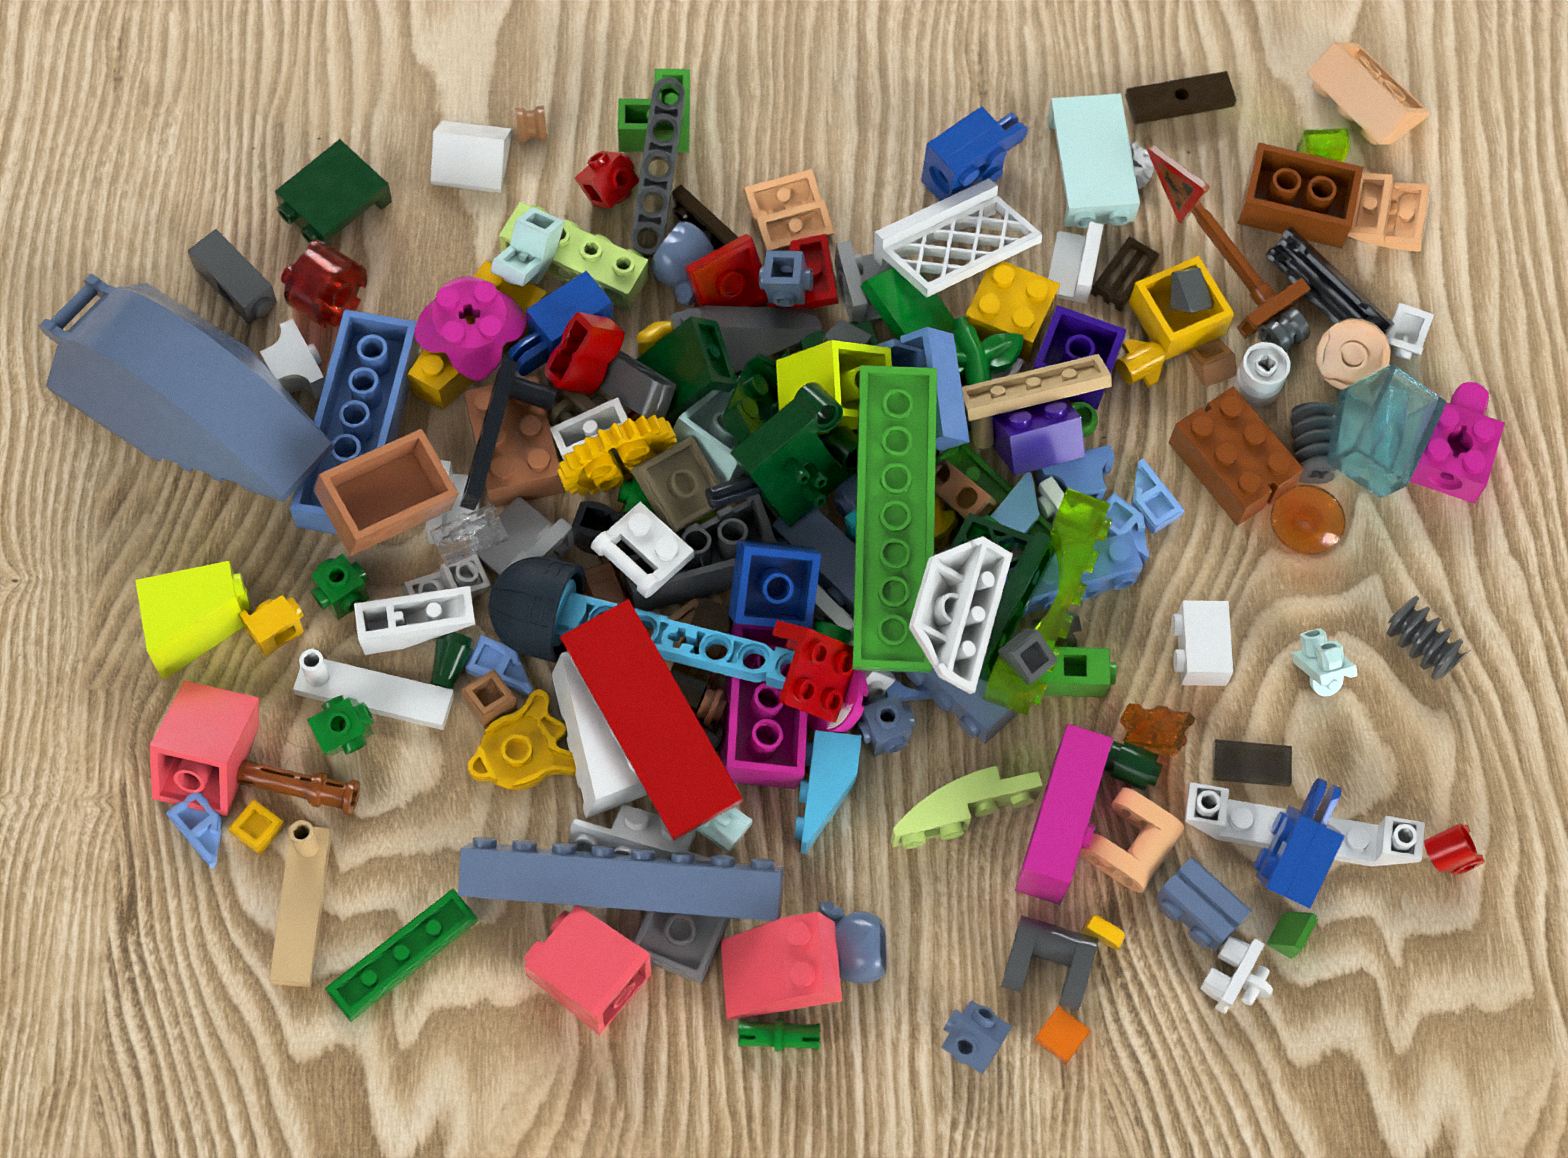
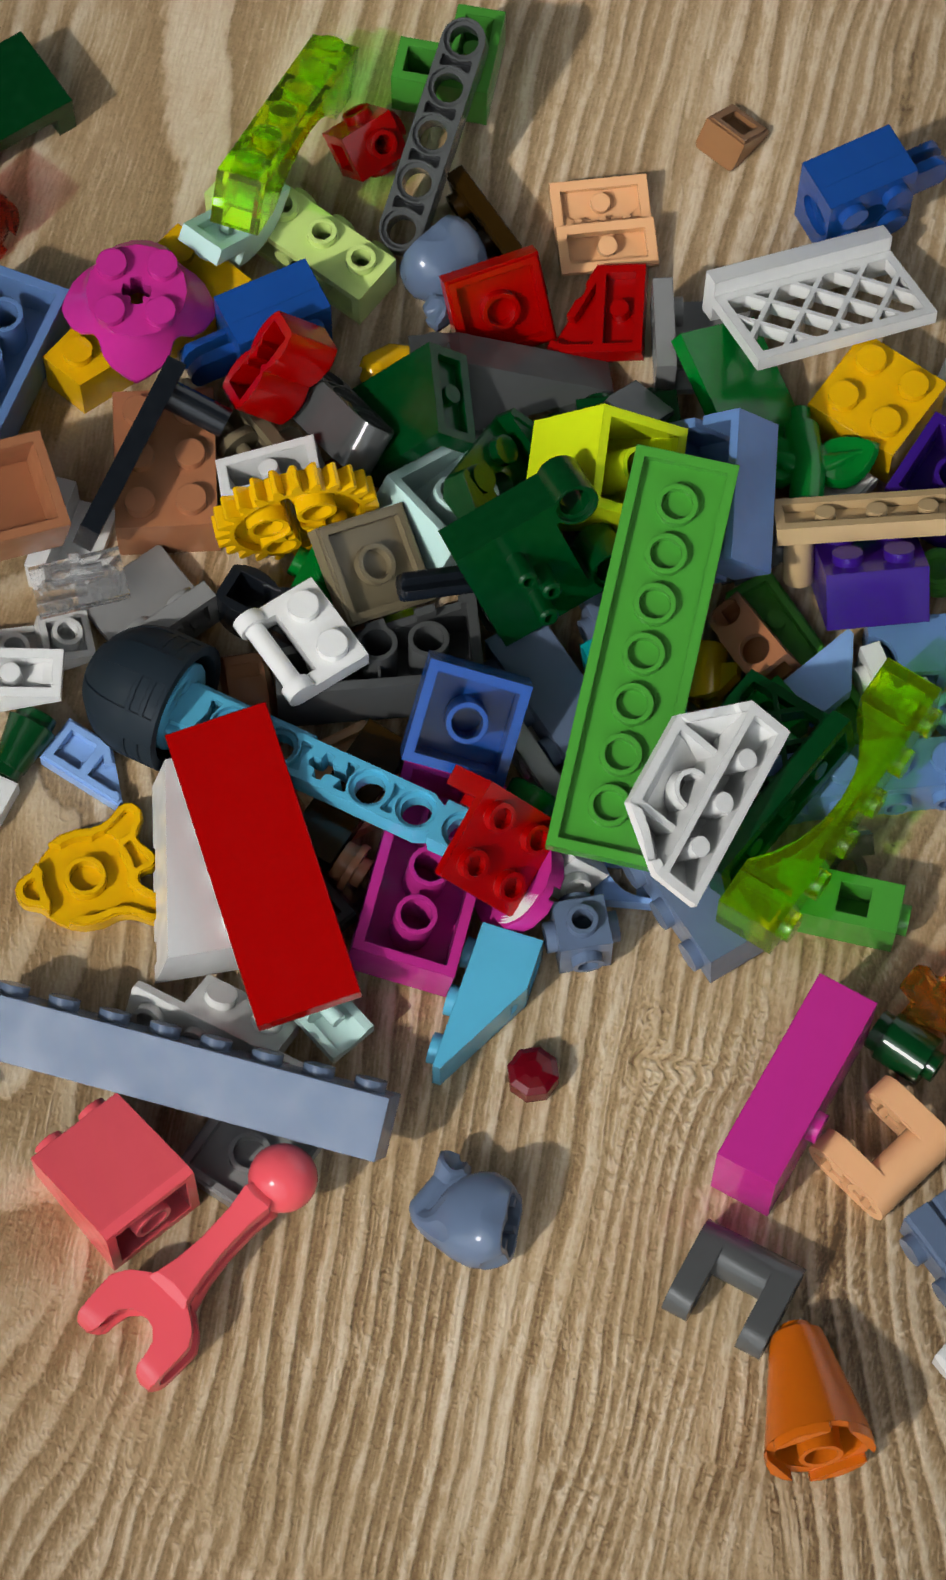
camera: 15 degrees right, 0 degrees up
(470, 156) = (191, 82): white slope -> none
(488, 698) = (62, 803): medium nougat slope -> none
(531, 124) = (278, 50): medium nougat wheel -> none
(547, 186) = (261, 159): none -> clear neon green arch
(709, 948) = (278, 1182): none -> coral piece
(779, 1035) = (350, 1314): green pin -> none
(781, 966) = (373, 1225): coral slope -> none
(785, 278) = (574, 313): sand blue brick -> none
(864, 133) = (730, 137): none -> medium nougat slope
(872, 834) = (533, 1074): none -> dark red tile
(949, 807) = (639, 1059): yellowish green slope -> none
(975, 1036) = (610, 1365): sand blue brick -> none
(1028, 655) = (783, 871): dark grey slope -> none
(1062, 1035) = (730, 1388): orange tile -> none
(1105, 931) = (817, 1262): yellow tile -> none
(1124, 1038) = (810, 1408): none -> orange cone

